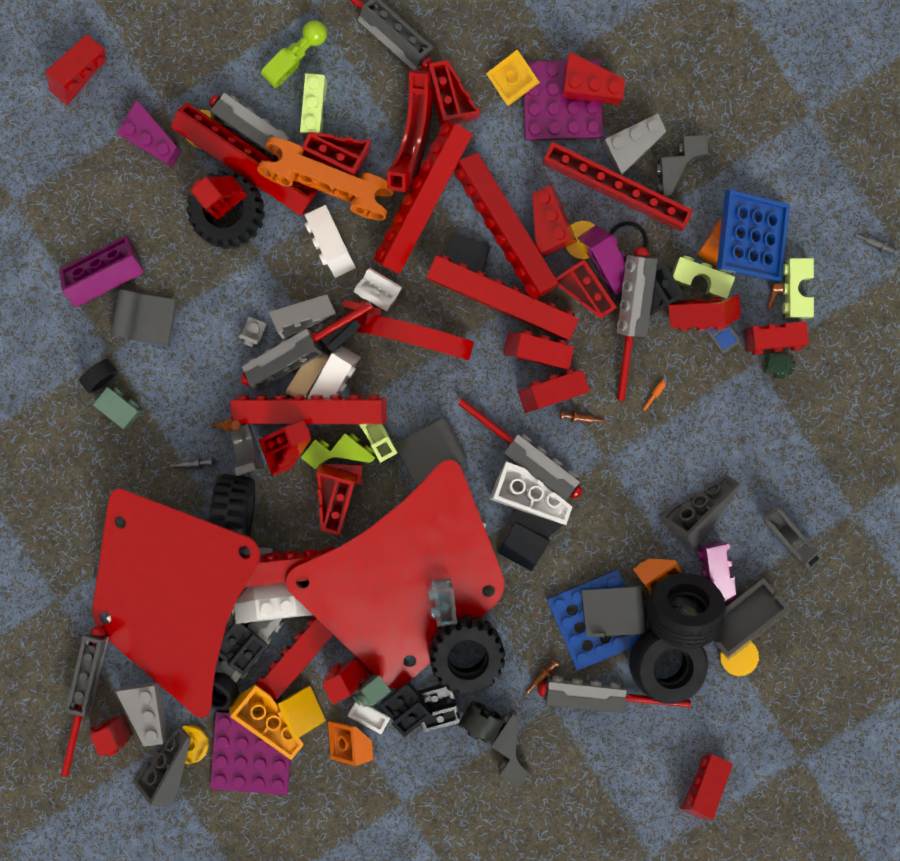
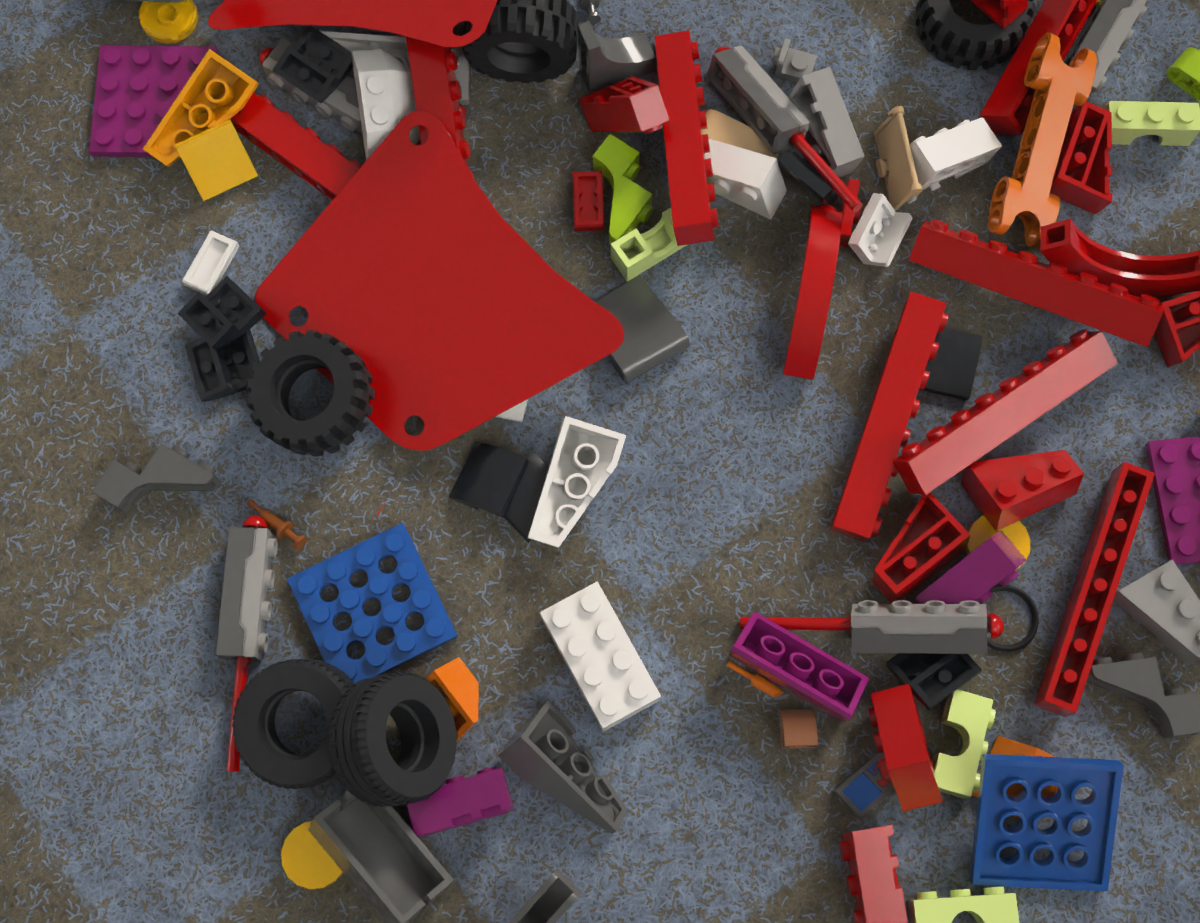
camera: 85 degrees right, 15 degrees down
(228, 425) = (651, 29): dark orange piece -> none
(229, 688) = (248, 46): black tyre -> none
(330, 274) = (896, 159): none -> tan door
(334, 497) = (550, 184): red wedge -> none
(343, 679) = (267, 209): red wedge -> none
(349, 744) = (164, 234): orange slope -> none
(371, 691) = (249, 252): sand green piece -> none
(443, 602) = (393, 346): clear light blue brick -> none
(481, 722) = (200, 424): pearl dark grey brick -> none
(532, 458) = (631, 485): piece -> none
(539, 349) = (811, 482): red wedge -> none
(553, 390) = (748, 509): red wedge -> none
(579, 417) = (705, 560): dark orange piece -> none
(614, 611) = (387, 627): dark grey door -> none
(638, 485) = (600, 656): none -> white brick
(654, 369) = (799, 667): none -> magenta slope
(686, 371) = (798, 728): none -> nougat brick
(707, 787) = (89, 808): red wedge -> none
(776, 288) = (958, 878): dark orange hand -> none
(779, 365) = (826, 890): clear green brick -> none

